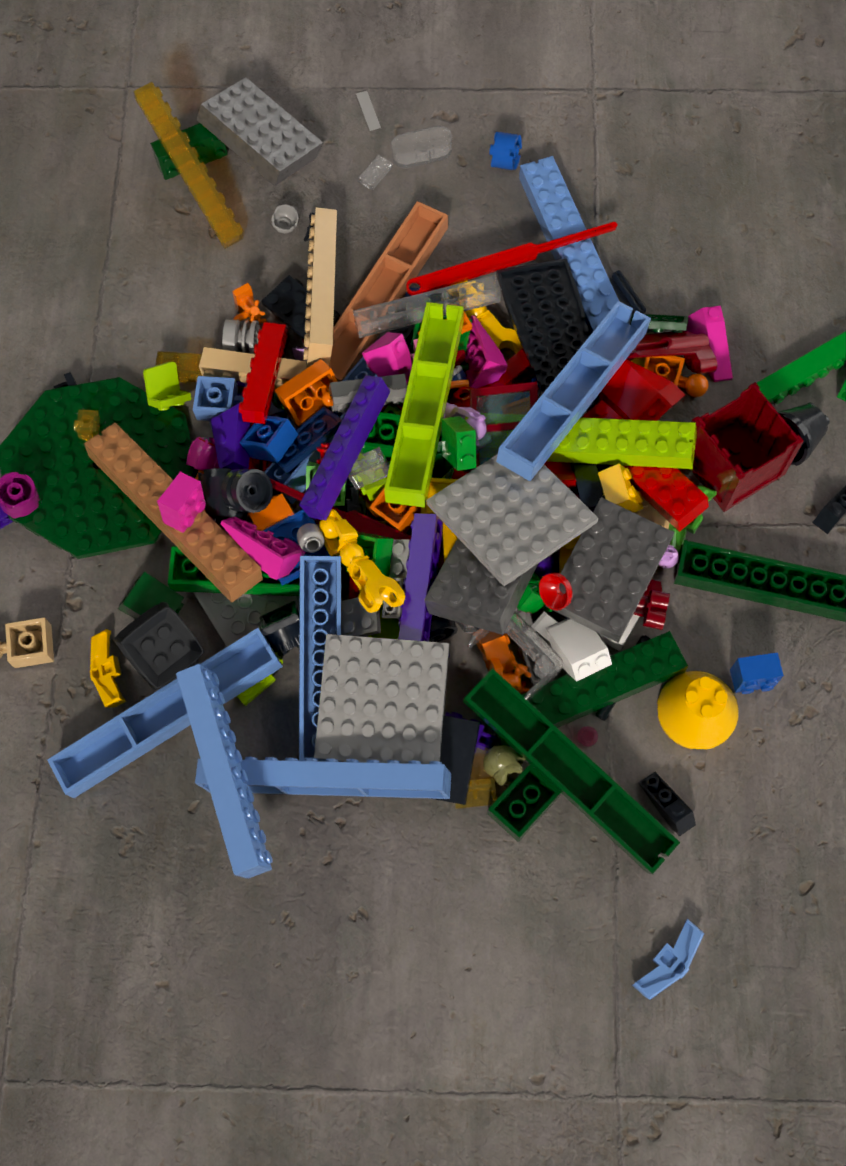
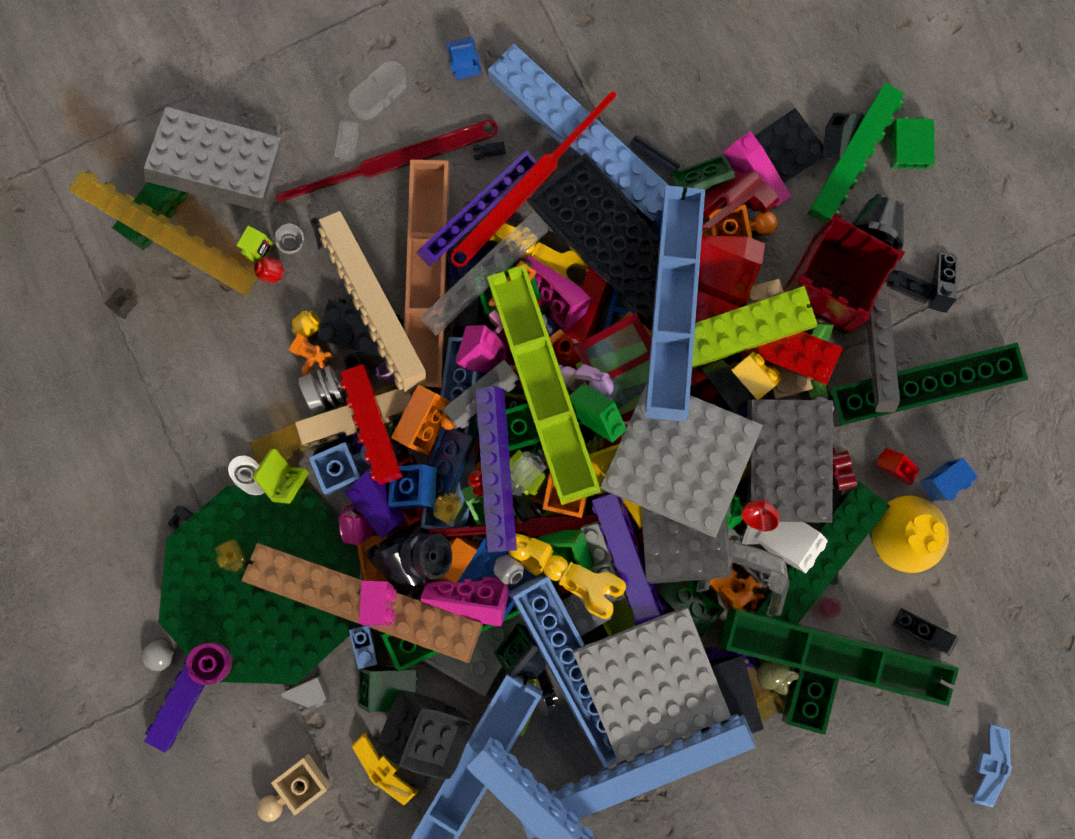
camera: 30 degrees left, 15 degrees up
(83, 572) = (308, 693): none -> light grey slope
(124, 206) = (117, 299): none -> clear smoke brick
(135, 374) = (241, 472): none -> white piece
(152, 557) = (364, 647): none -> medium blue slope
(254, 209) = (254, 244): none -> lime brick
(254, 234) = (269, 270): none -> red head
(260, 287) = (306, 324): none -> yellow head
(286, 681) = (549, 697): none -> black plate
(288, 464) = (447, 507): none -> clear yellow brick
(368, 110) = (301, 73): light grey sticker -> none
(406, 202) = (400, 158): none -> dark red piece
(428, 261) = (476, 209): none -> dark purple brick
(463, 664) = (701, 605): none -> dark green plate
(488, 228) = (489, 149): none -> black bar
(715, 642) = (898, 466): none -> red slope
(744, 533) = (882, 357): none -> dark grey brick
(753, 338) = (790, 145): none -> black plate
(801, 341) = (840, 132): none -> black slope
(802, 494) = (909, 285): none -> black hinge

